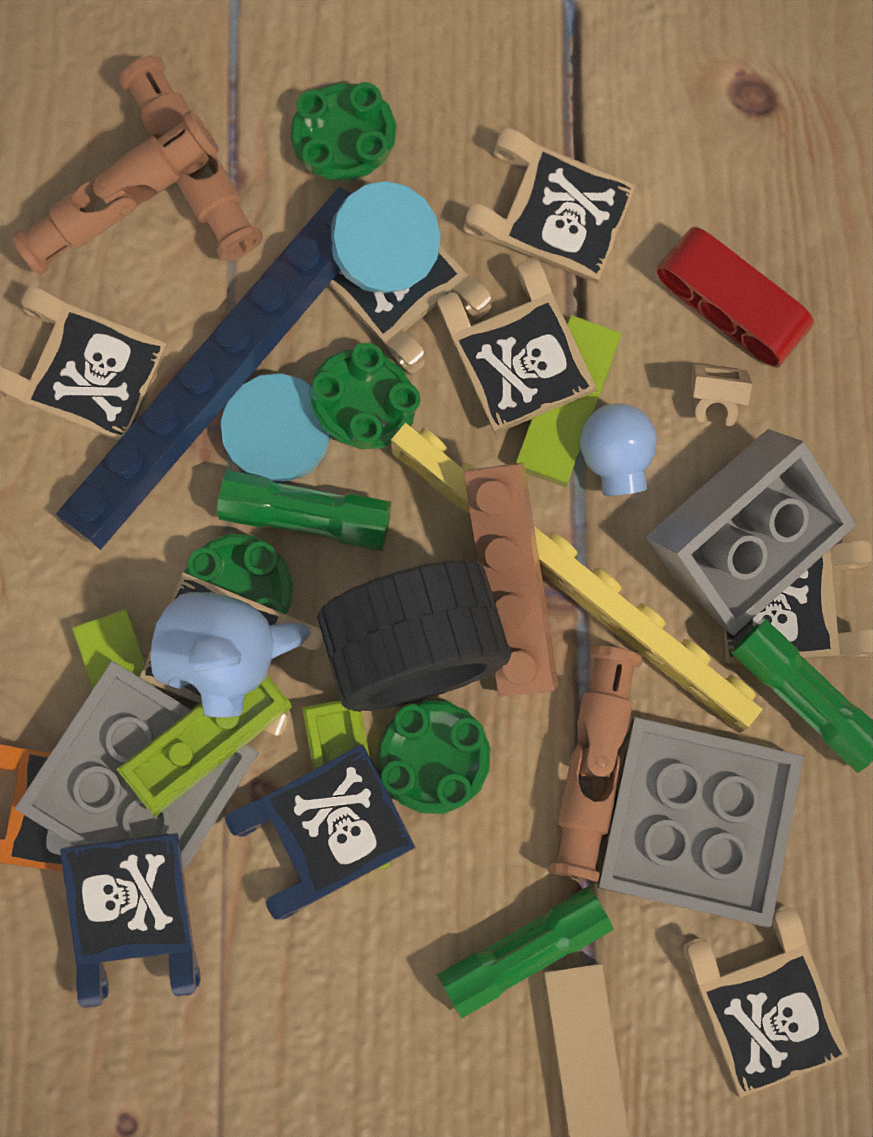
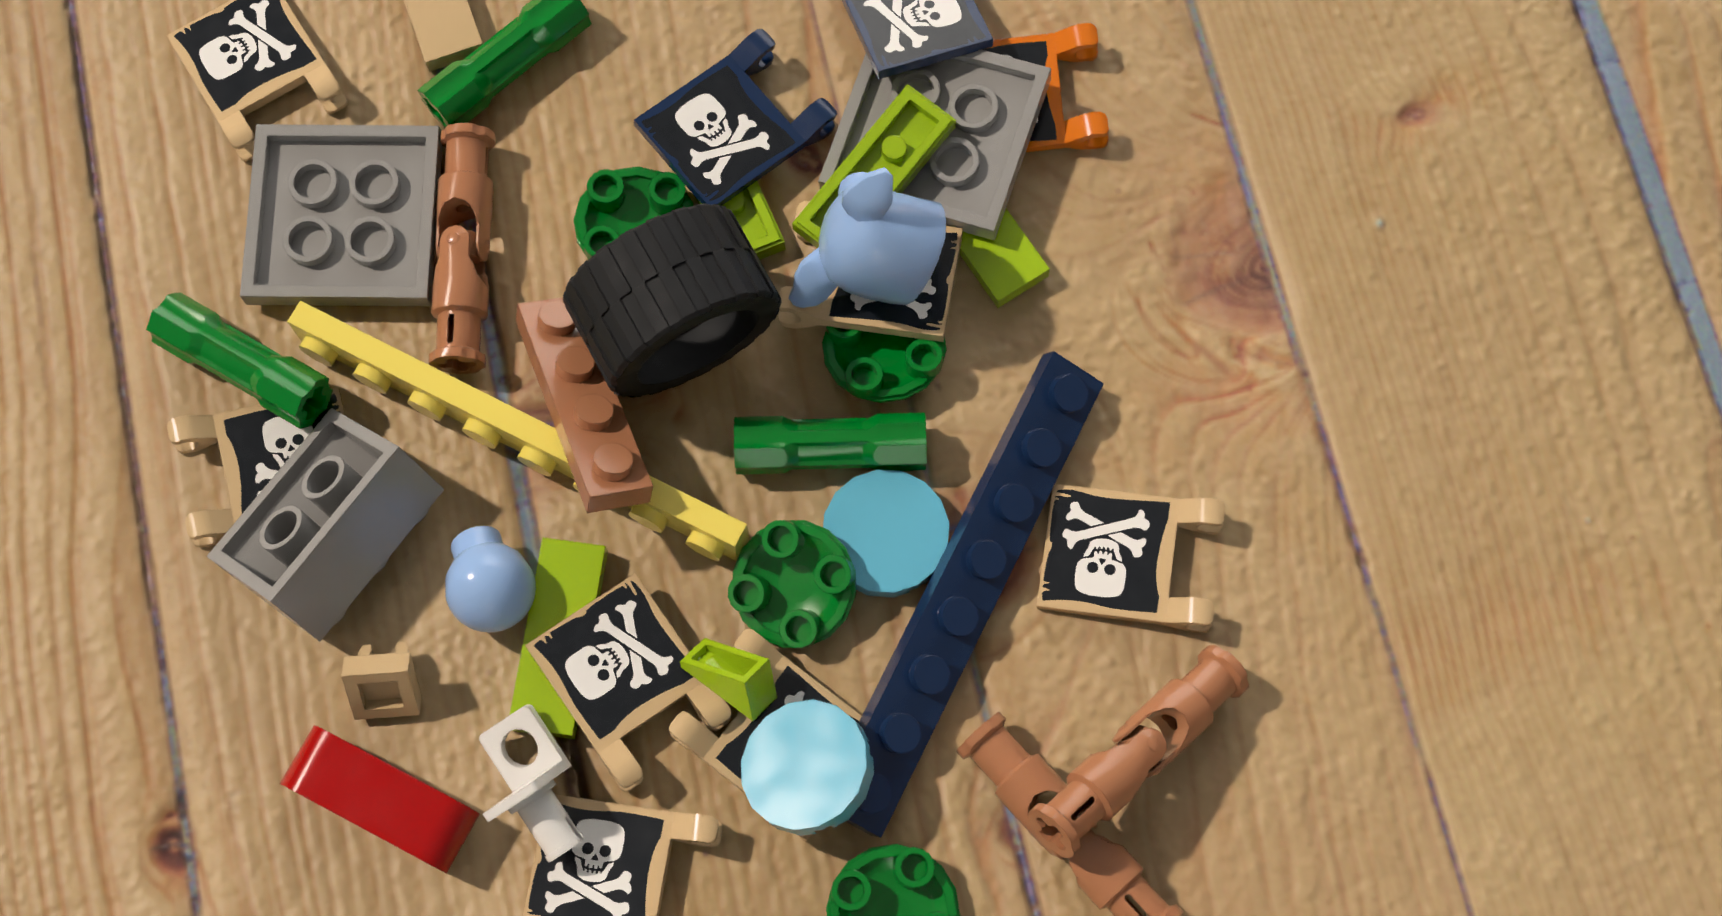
camera: 170 degrees right, 5 degrees down
(431, 329) = (734, 675): none -> lime piece
(609, 276) = (532, 783): none -> white bracket

